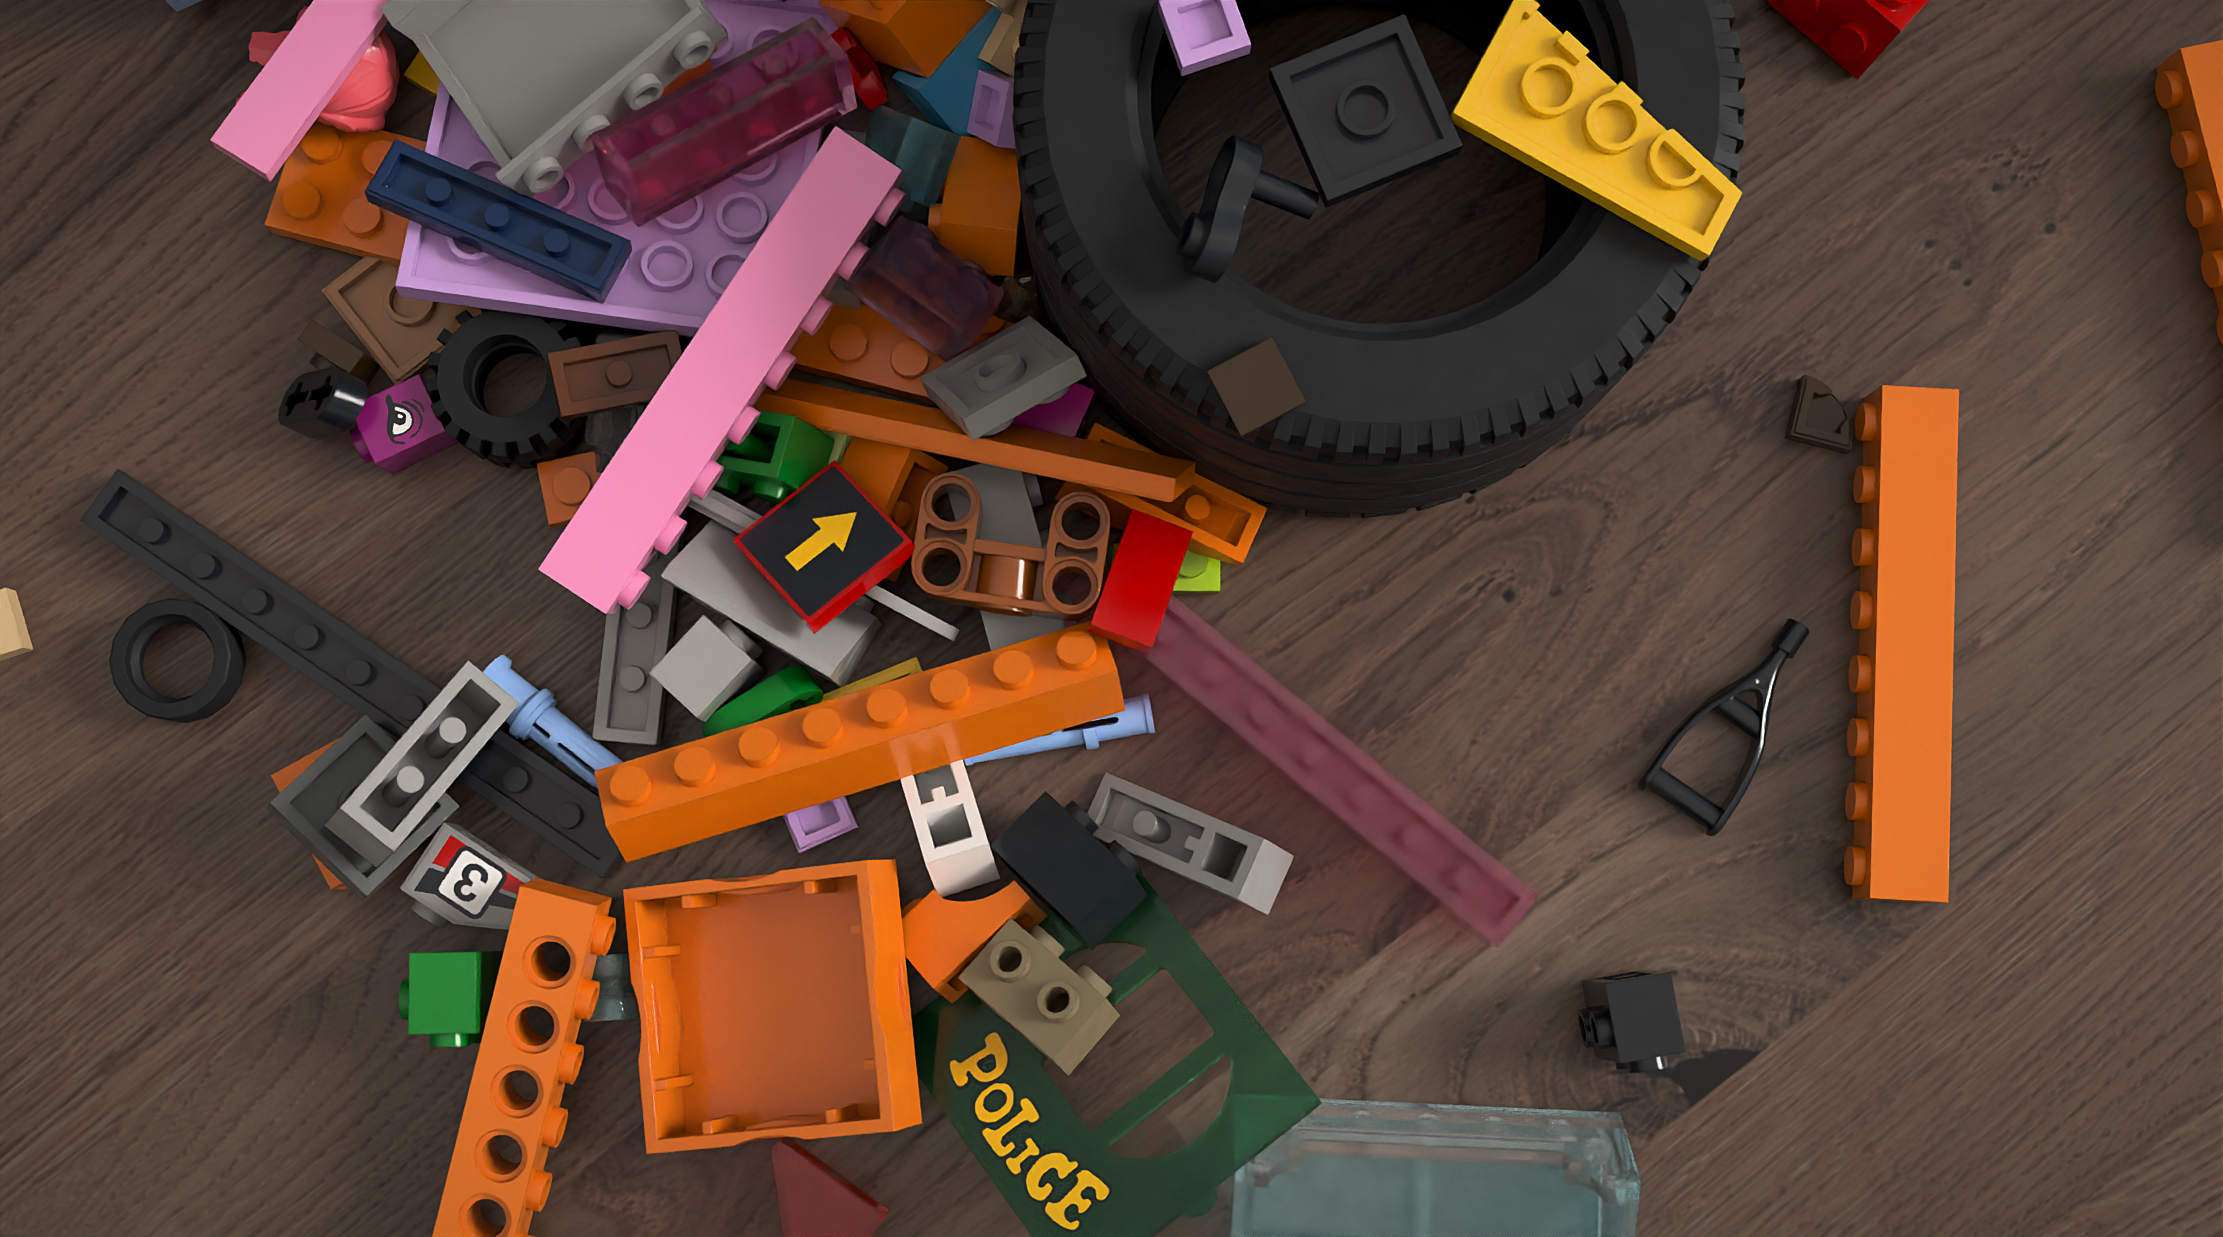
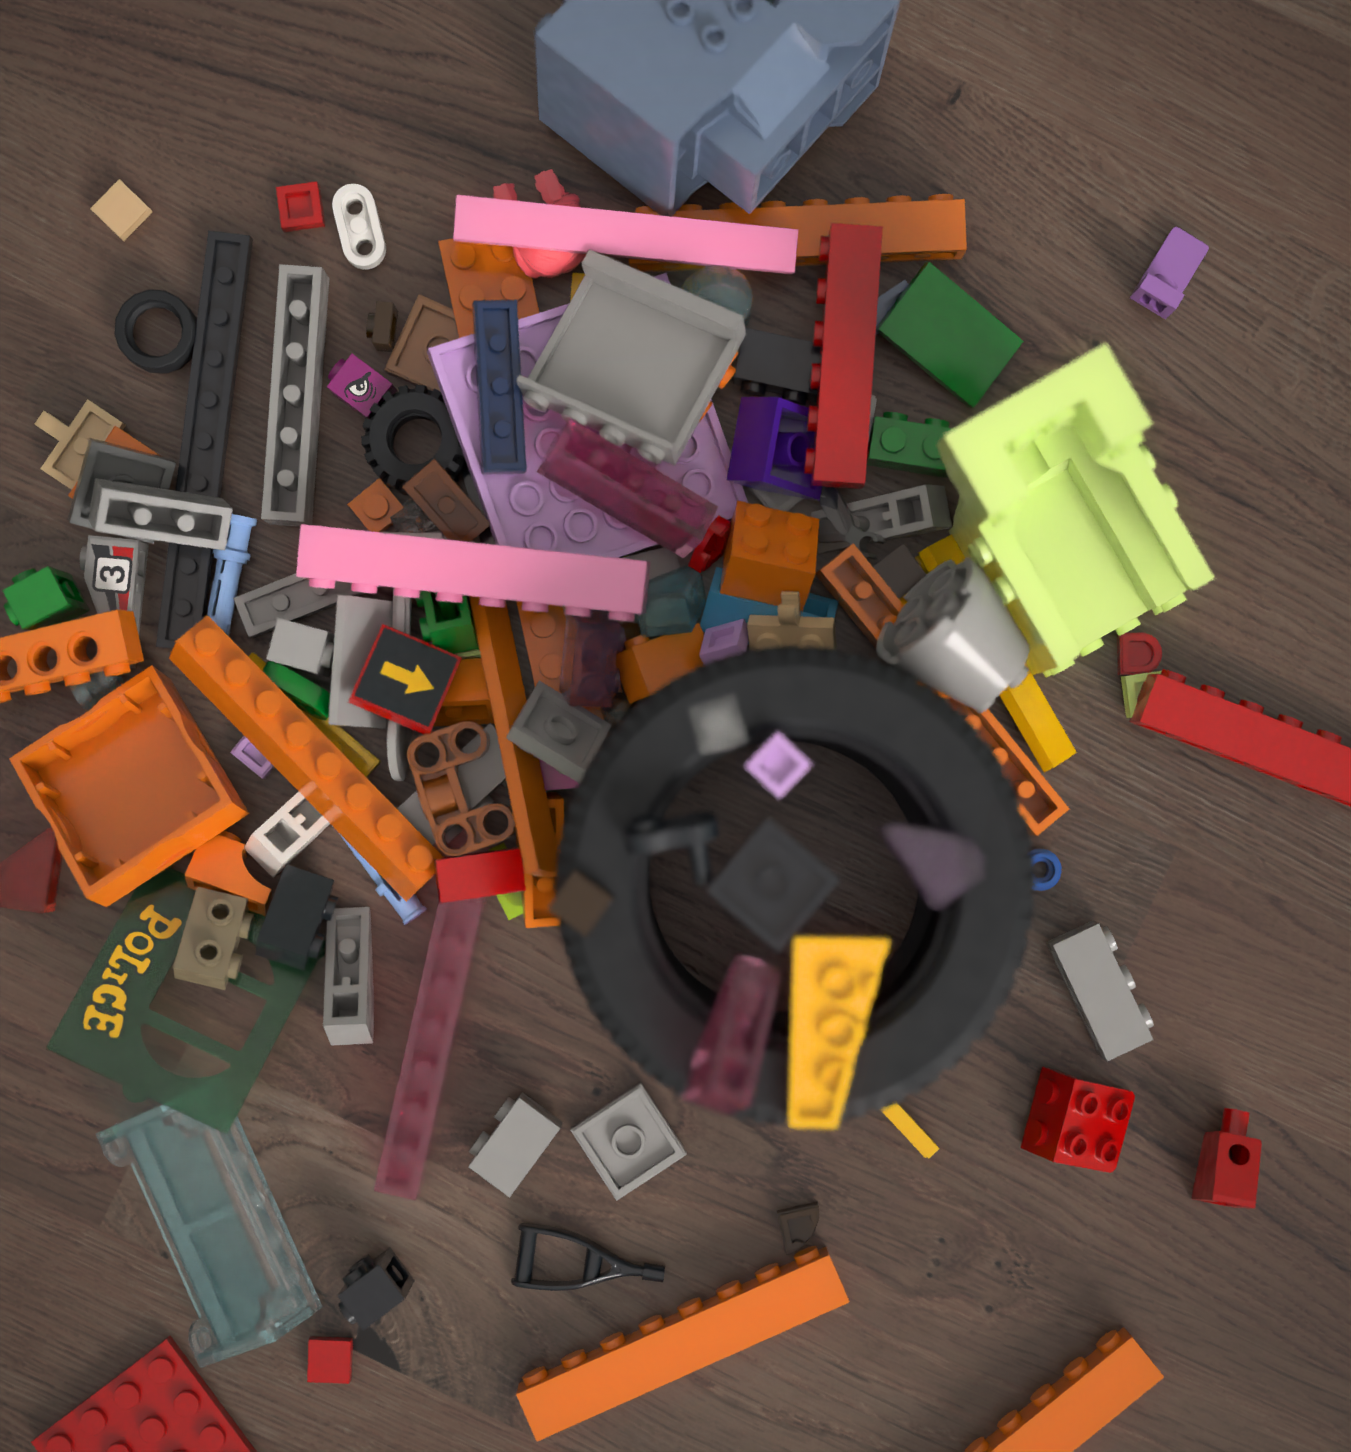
camera: 65 degrees right, 5 degrees up
(118, 387) = (300, 206): none -> red tile
(191, 320) = (359, 228): none -> white plate
(265, 847) = (68, 455): none -> tan plate
(322, 402) = (347, 335): black beam -> none
(365, 513) = (295, 395): none -> light grey brick
(1108, 79) = (718, 725): none -> clear plate
(1525, 731) = (514, 1144): none -> light grey brick
(1555, 268) = (734, 1039): none -> clear pink slope
(1596, 583) = (628, 1141): none -> light grey tile
(1697, 1138) = (330, 1360): none -> red tile
(1772, 201) = (911, 1130): none -> yellow tile

